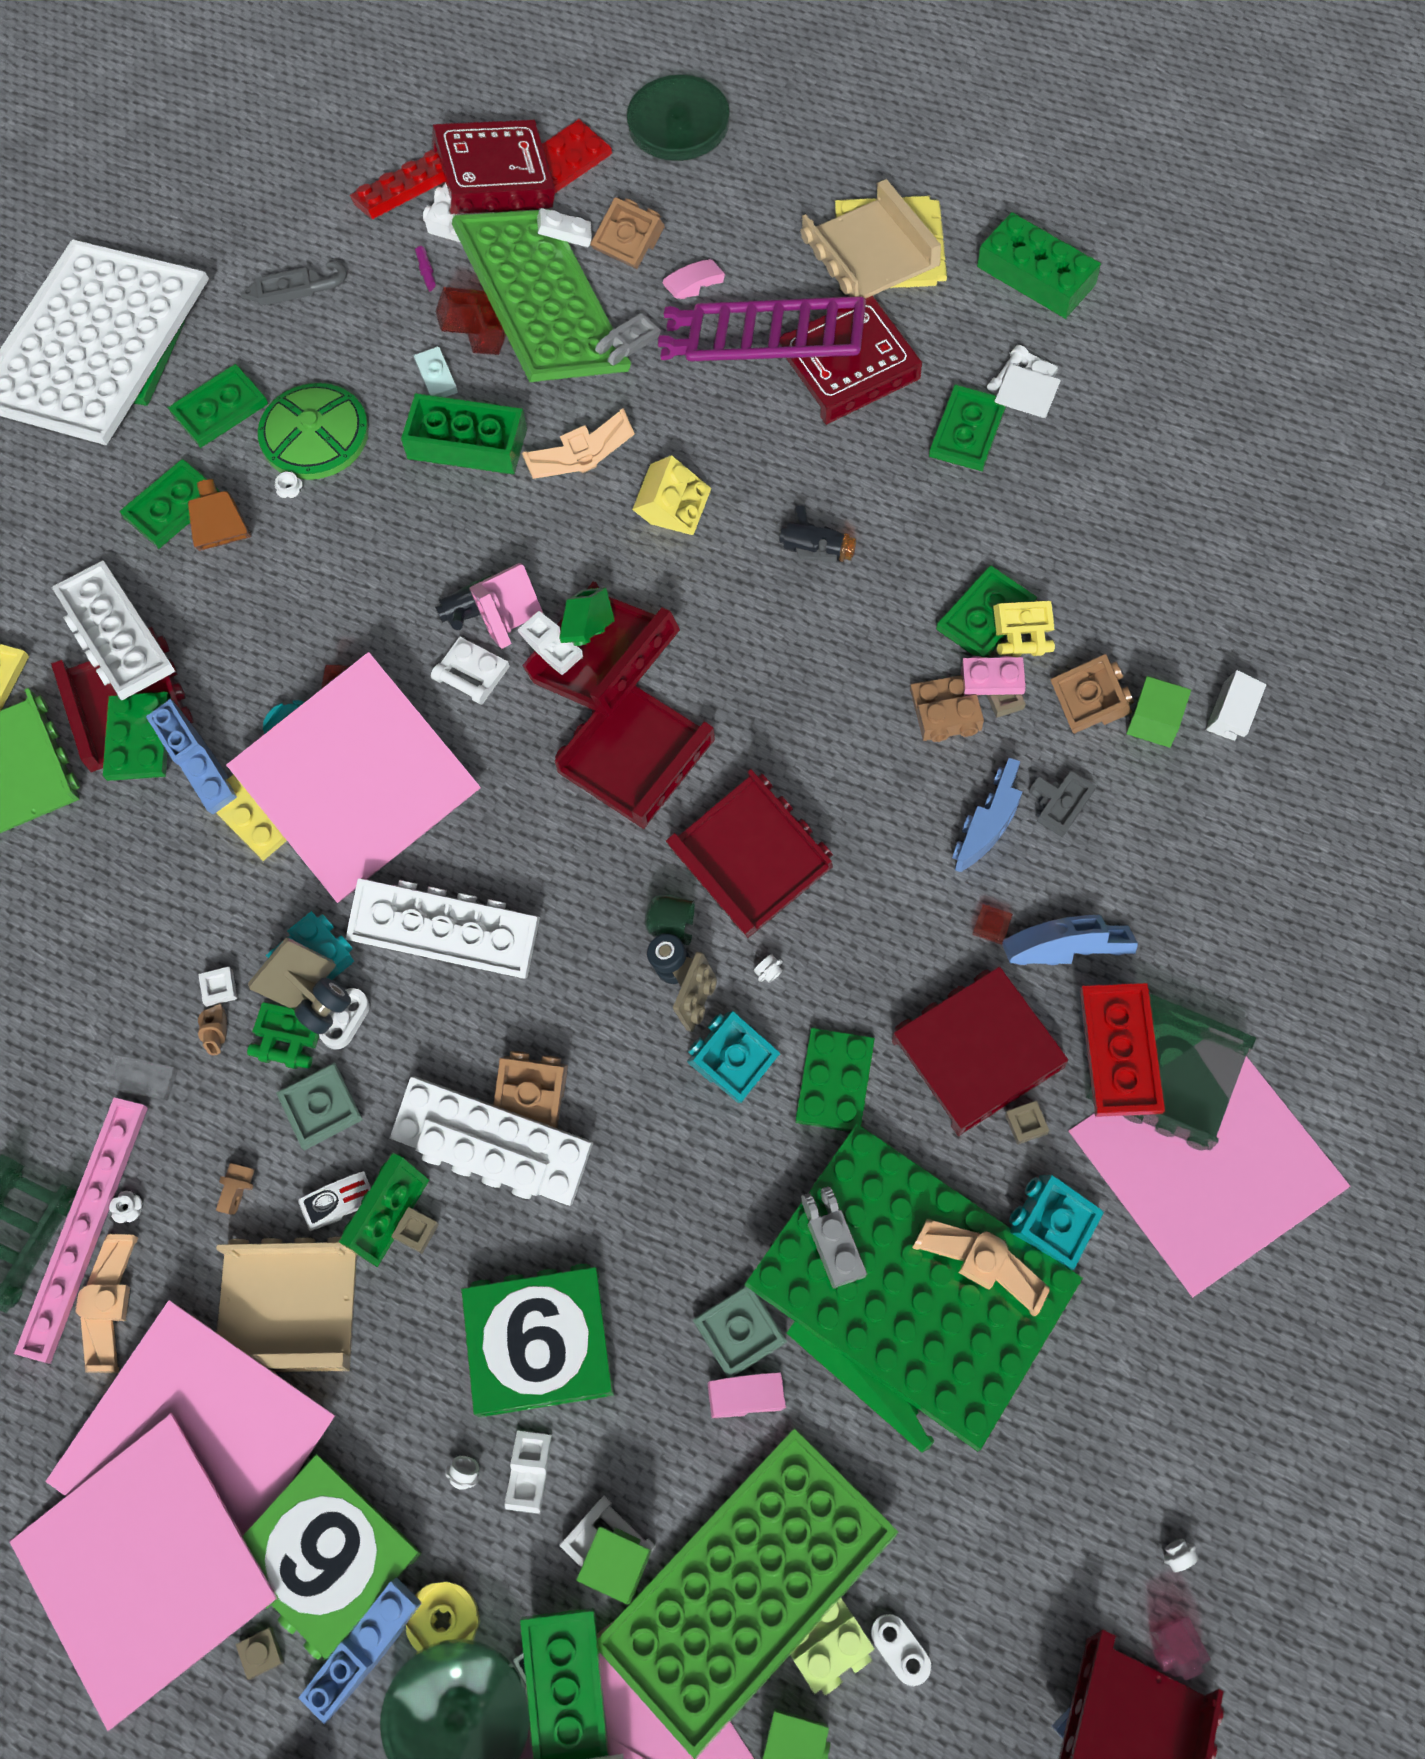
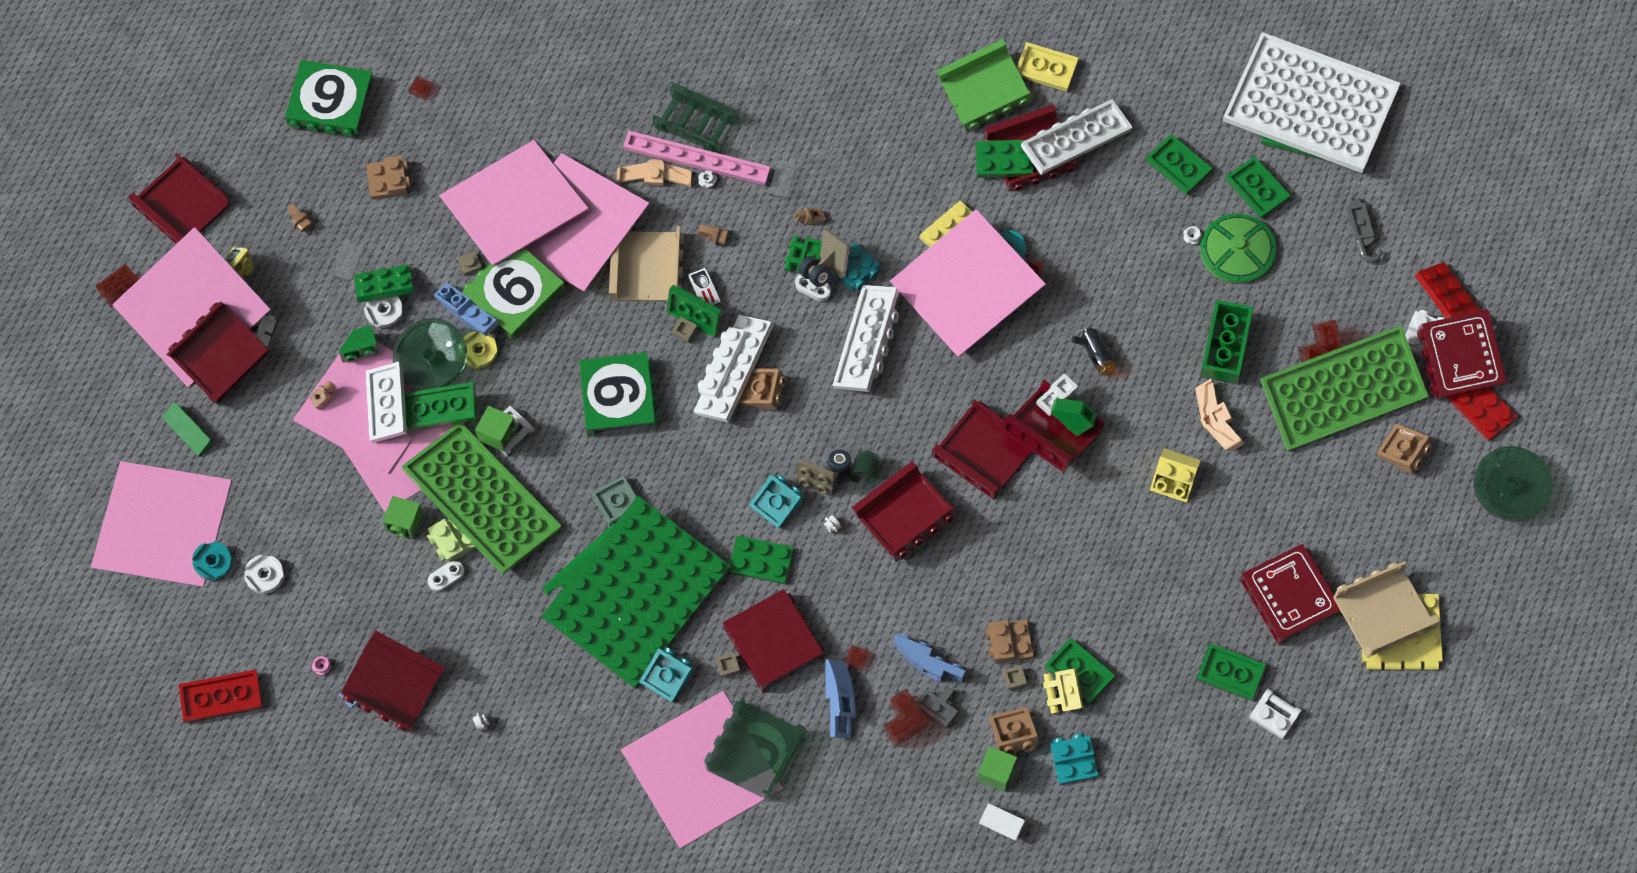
camera: 90 degrees right, 0 degrees up
(193, 756) = (985, 192): medium blue slope -> none
(215, 518) = (1161, 192): dark orange torso -> none
(217, 986) = (836, 217): white plate -> none
(319, 1106) = (760, 276): sand green plate -> none
(425, 267) = (1378, 315): magenta piece -> none
(435, 373) = (1284, 324): light aqua plate -> none
(463, 1472) = (551, 358): white plate -> none
(475, 663) = (1052, 355): white plate -> none
(505, 602) = (1090, 367): bright pink bracket -> none
(528, 1472) = (550, 392): white slope -> none
(564, 227) = (1408, 405): white plate -> none
(628, 338) = (1307, 447): light grey hinge -> none
(689, 279) = (1364, 492): bright pink slope -> none
(695, 318) = (1326, 492): magenta bar -> none
(746, 1395) = (581, 502): bright pink slope -> none
(816, 542) = (1136, 565): black piece -> none
(833, 1240) = (658, 542): light grey hinge -> none
(984, 1261) = (644, 627): light nougat plate -> none
(993, 675) = (1027, 668): bright pink bracket -> none
(1027, 391) = (1258, 712): white sticker -> none
(1038, 265) = (1374, 742): green brick -> none
(1094, 838) = (909, 719): none -> clear red brick
(1121, 1050) = (763, 712): red plate -> none
(1122, 618) = (1073, 759): none -> teal plate
(1179, 1648) = (434, 715): clear pink brick -> none

